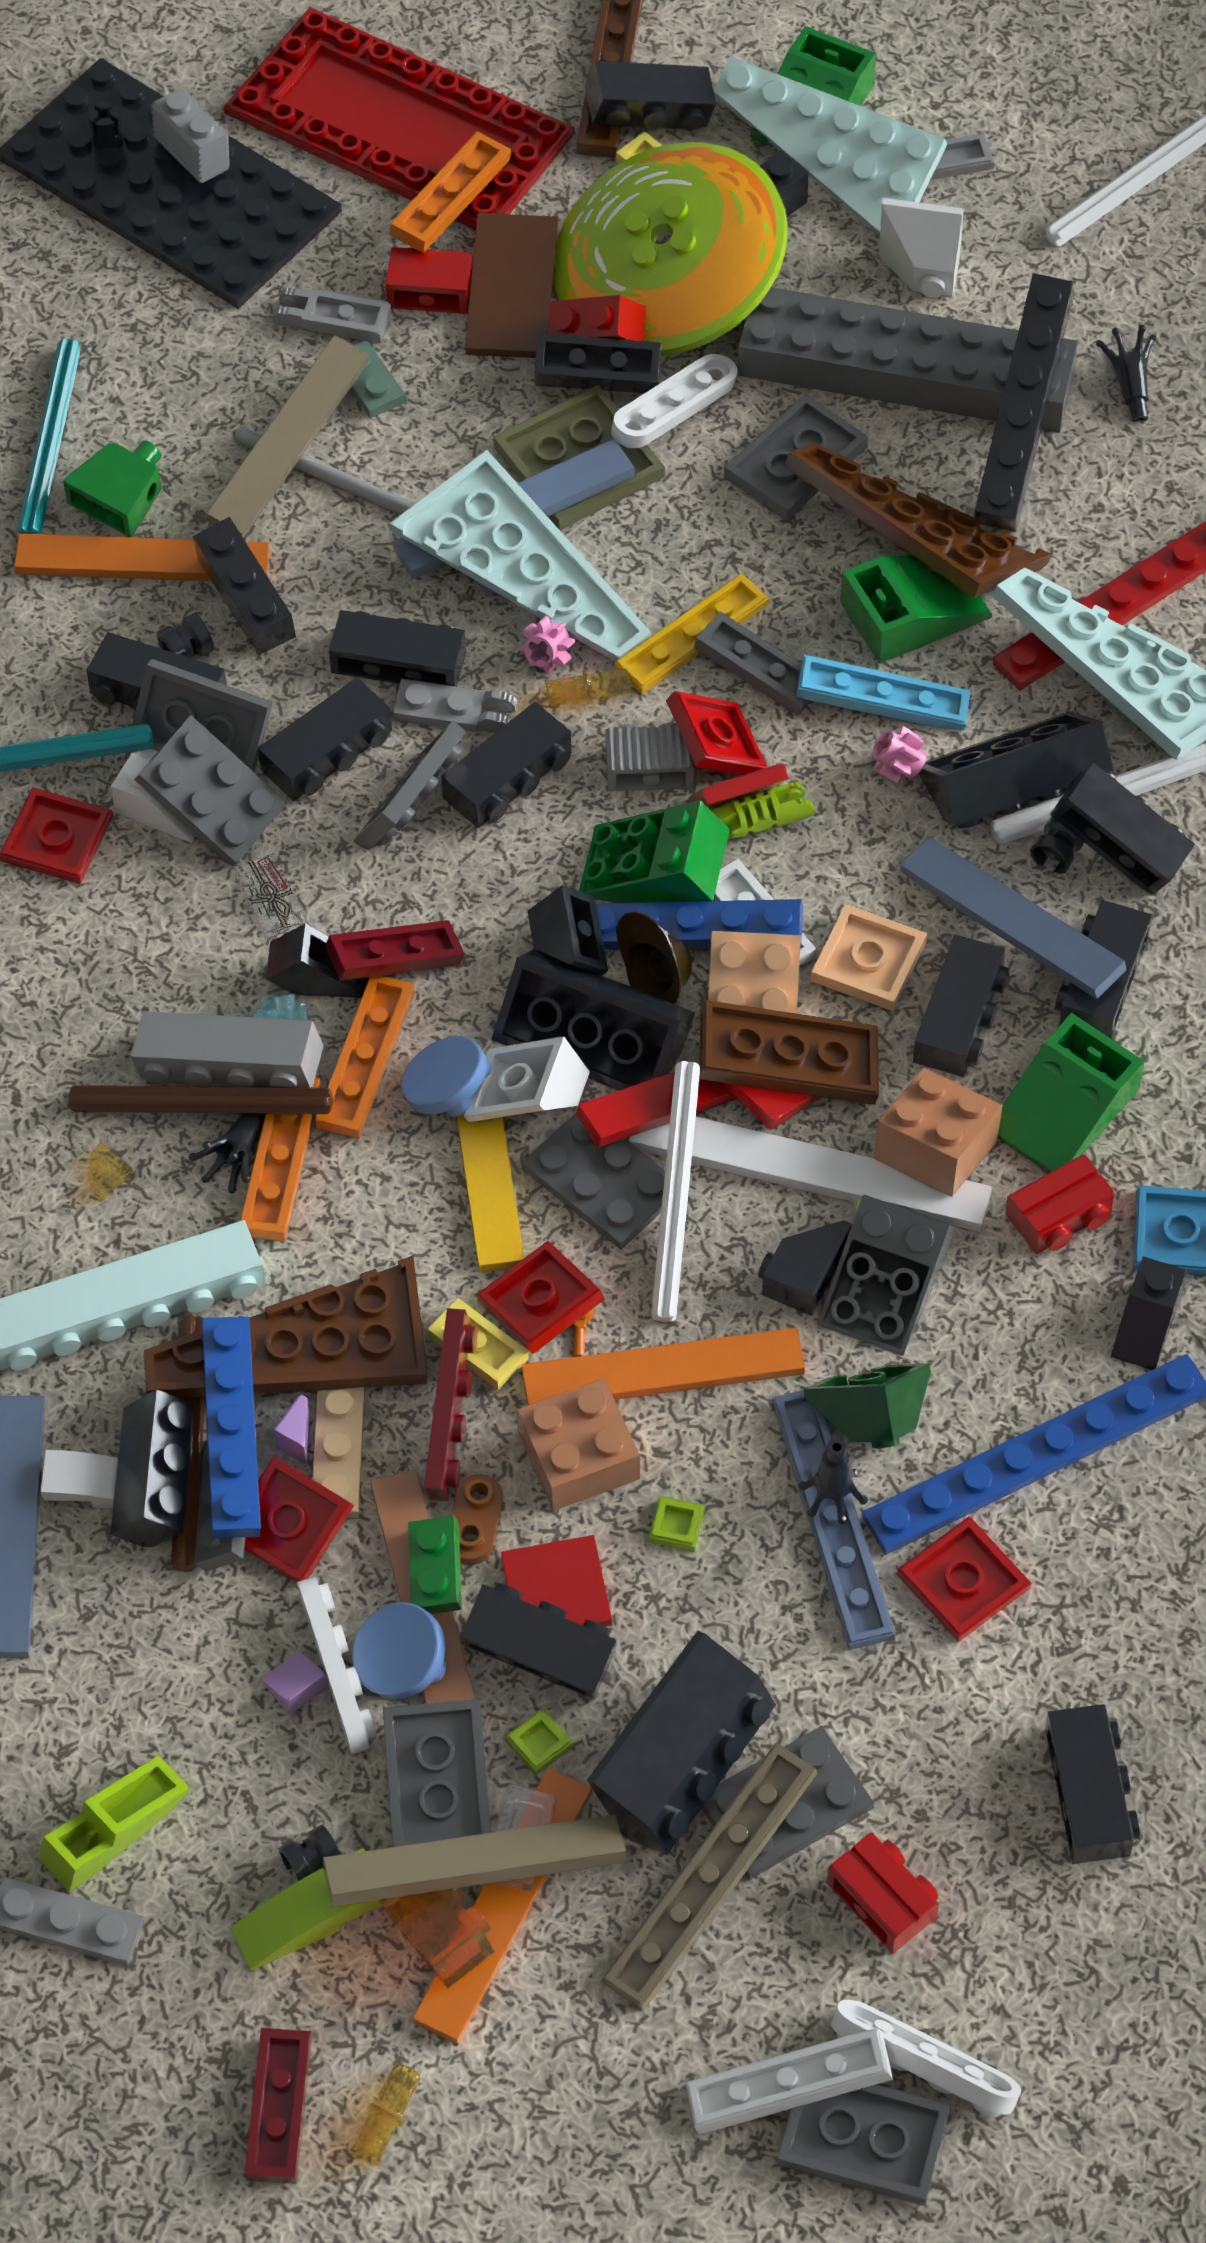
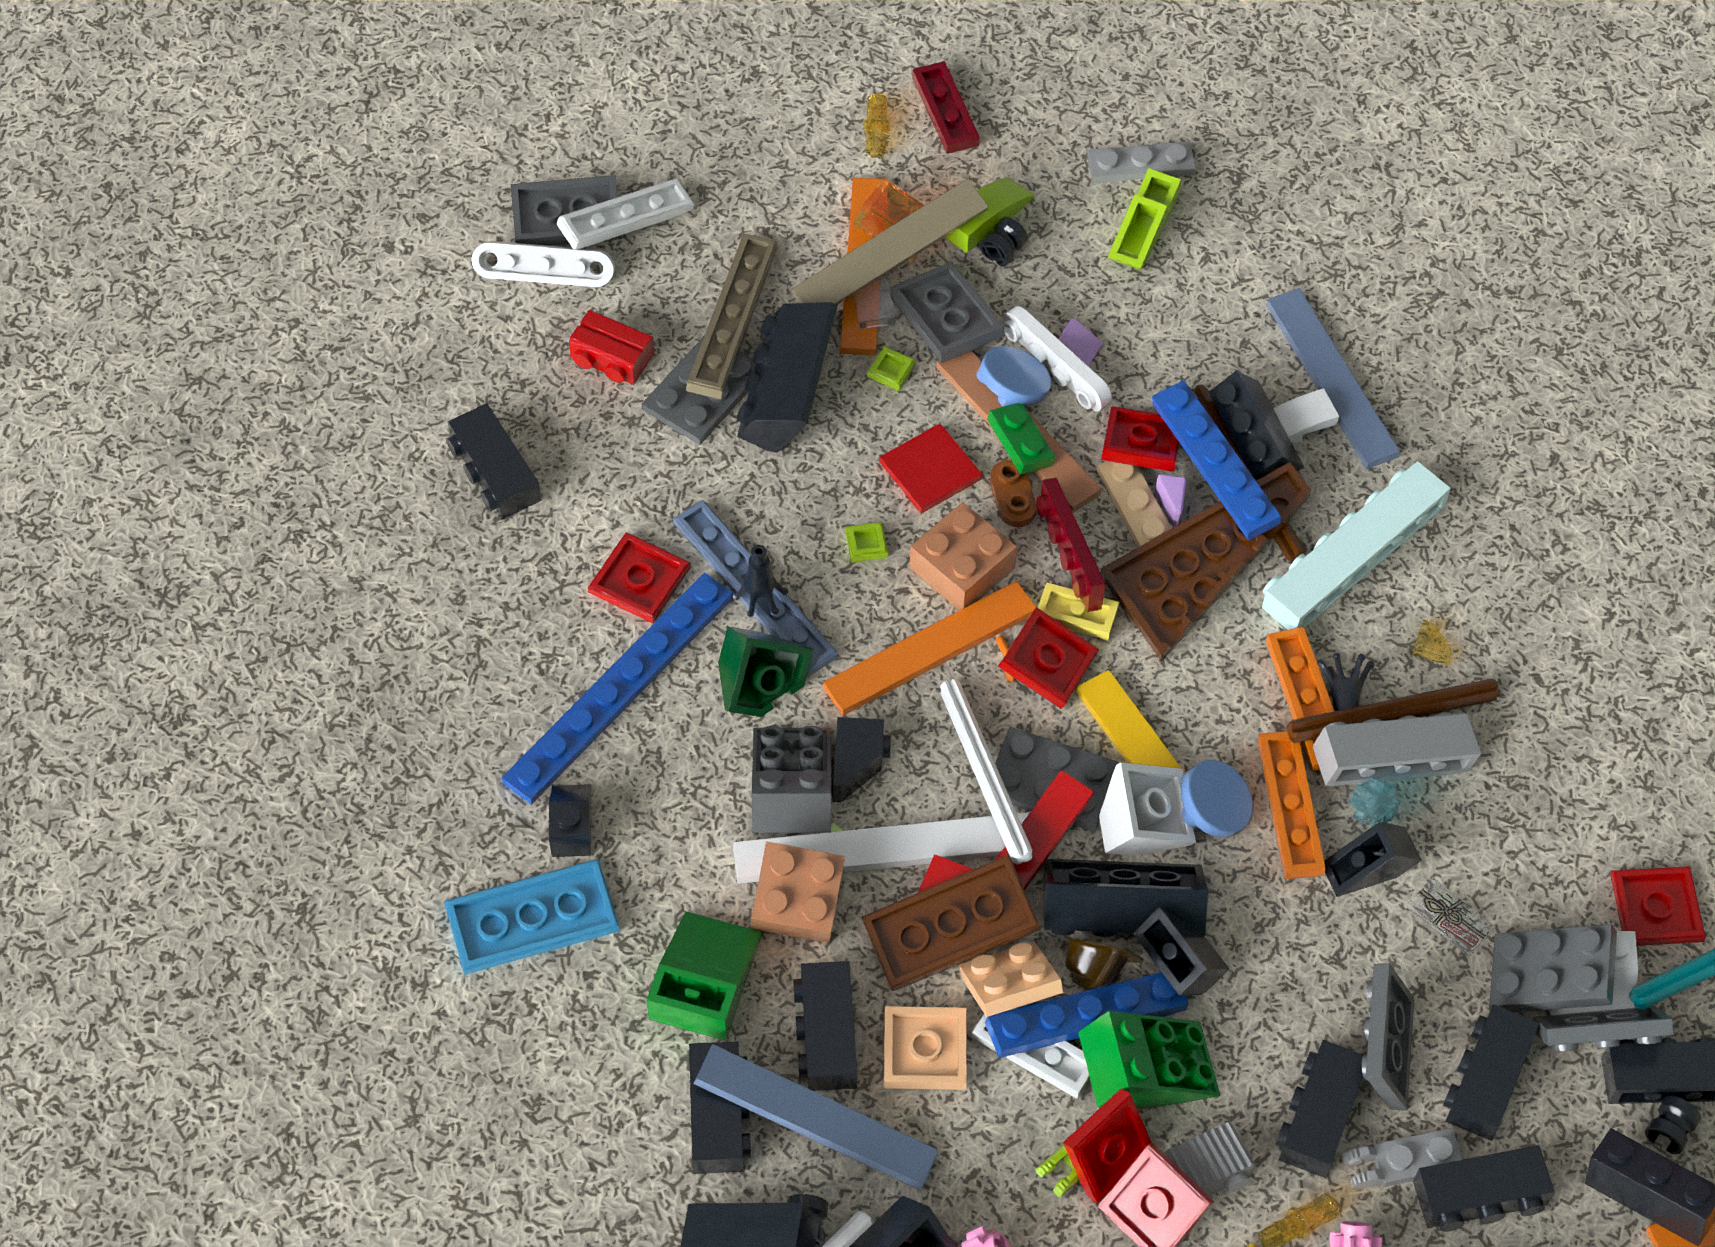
camera: 155 degrees right, 0 degrees up
(394, 950) = (1316, 887): dark red plate -> none
(539, 1639) = (921, 411): black brick -> none
(1060, 1205) = (675, 880): red brick -> none

